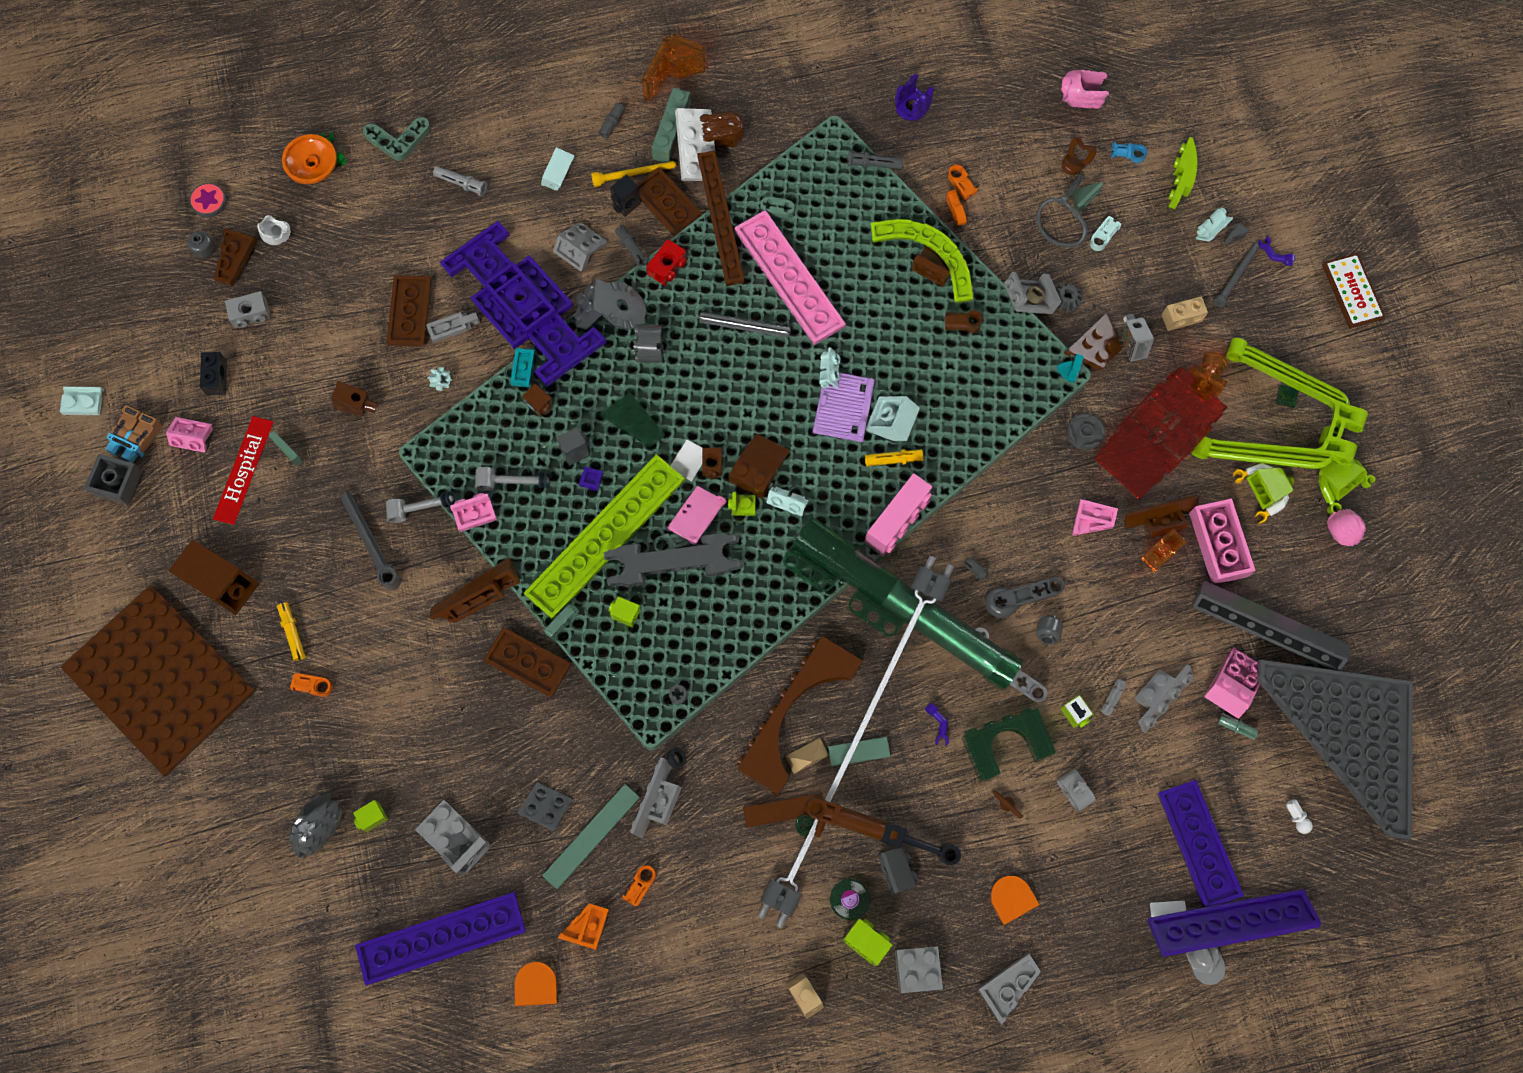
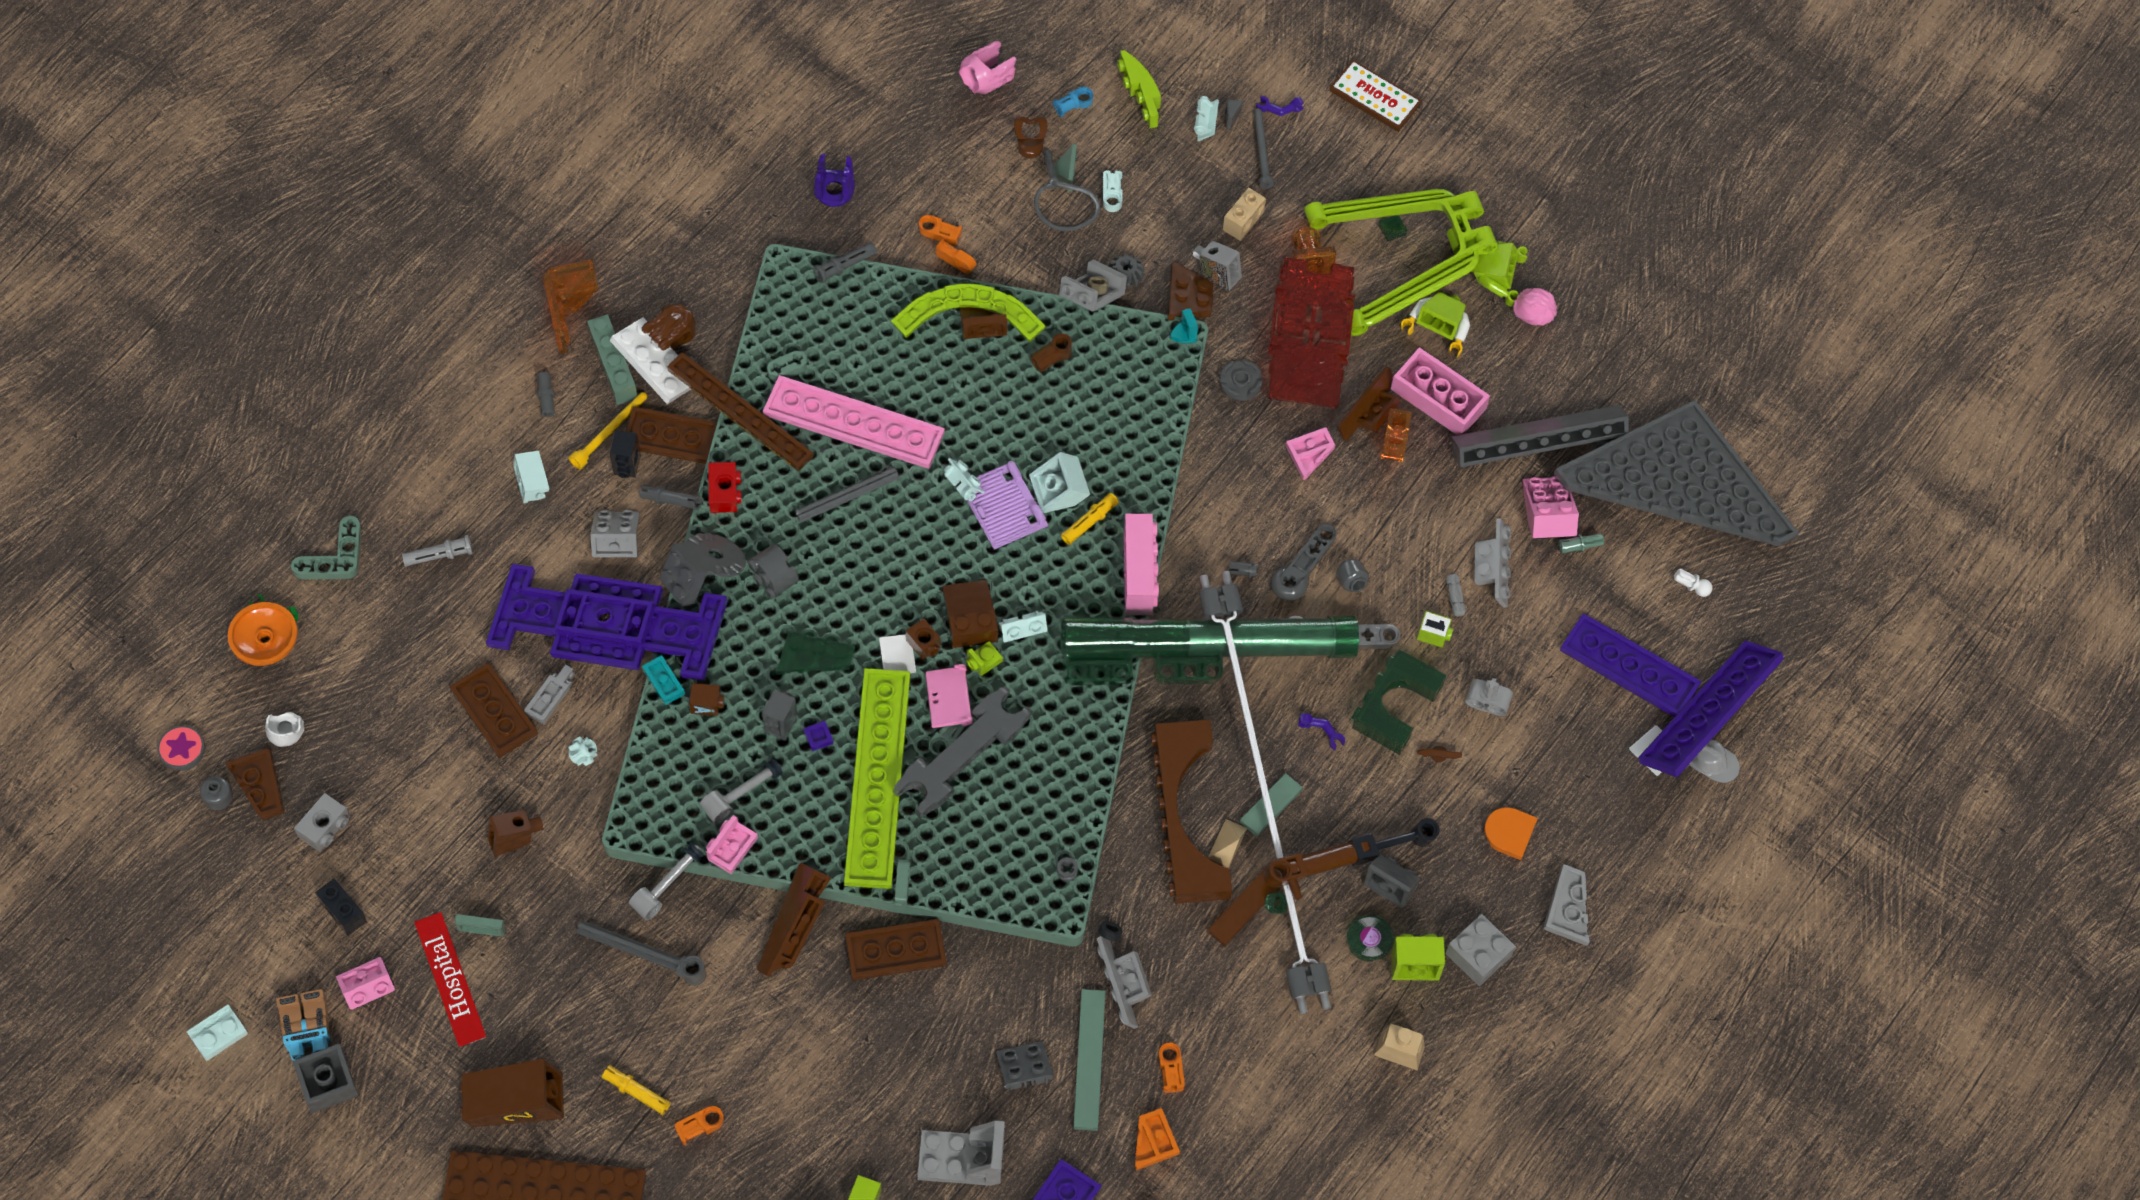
camera: 40 degrees left, 10 degrees down
(624, 611) = (955, 830): lime brick -> none

